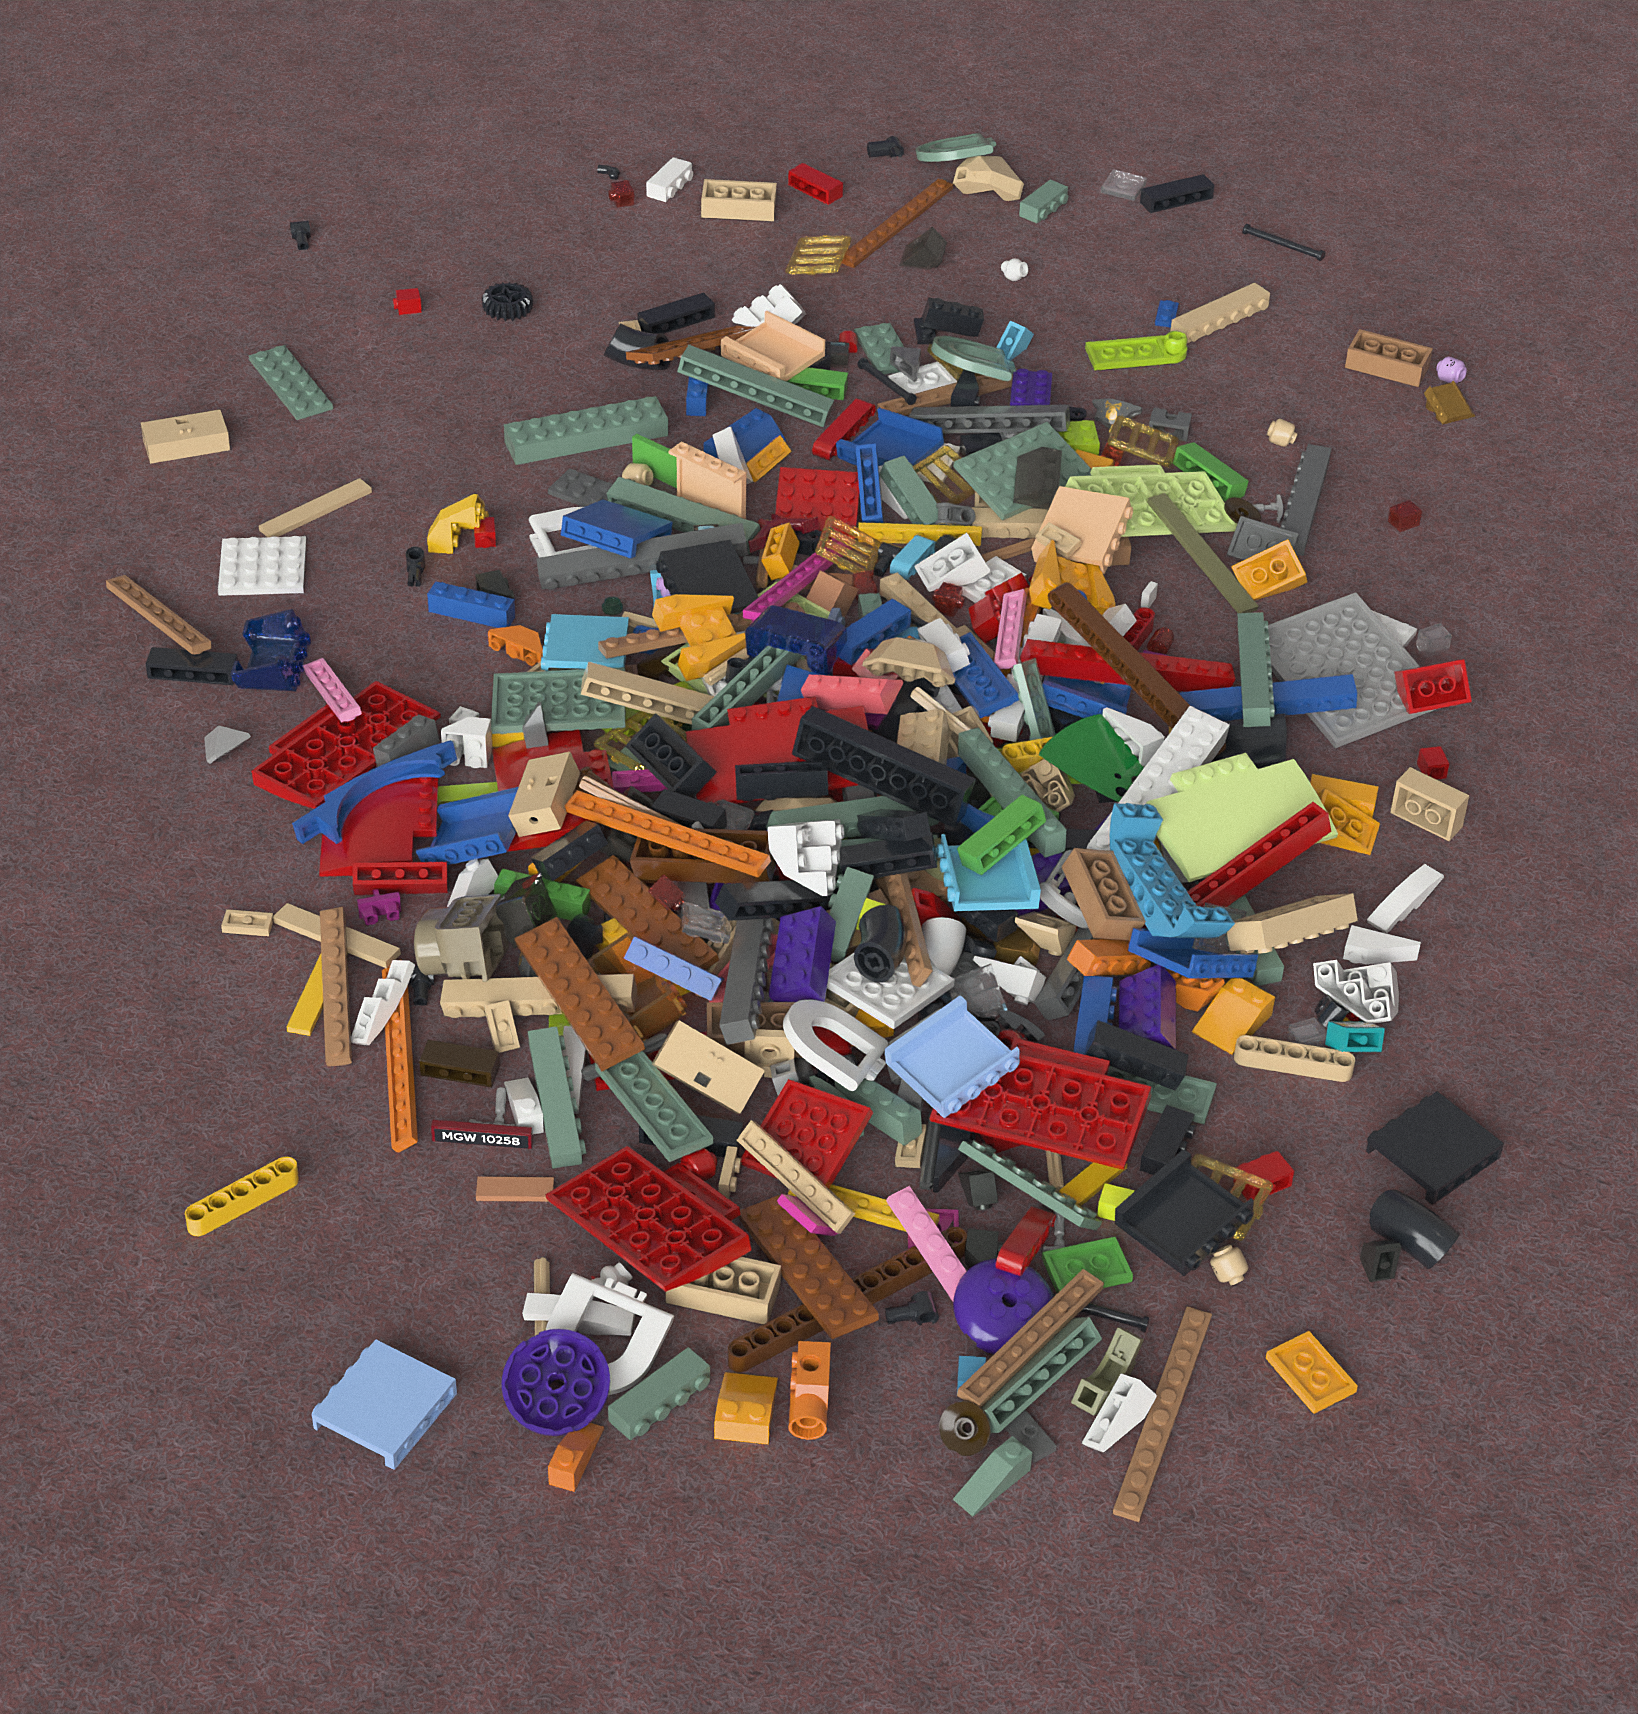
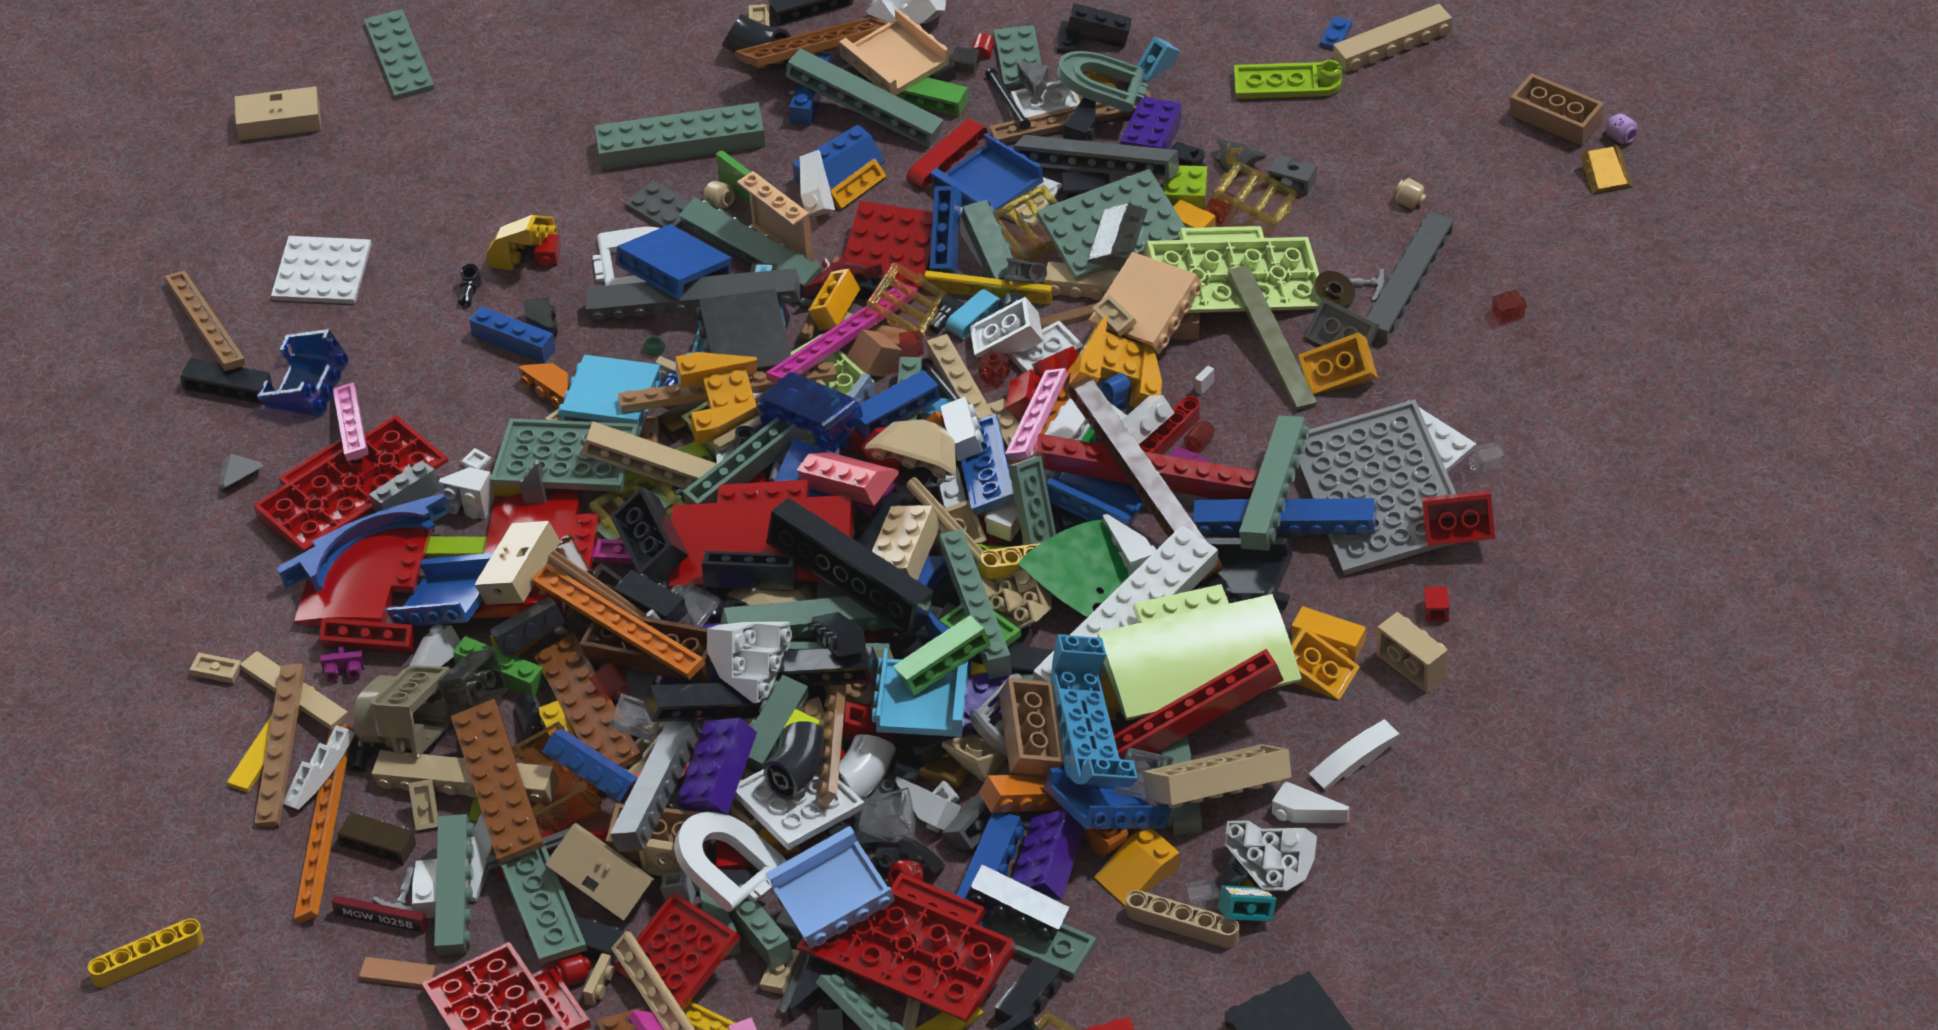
camera: 15 degrees right, 5 degrees up
(315, 508) = (388, 207): tan tile -> none
(1225, 480) = (1326, 245): bright green brick -> none

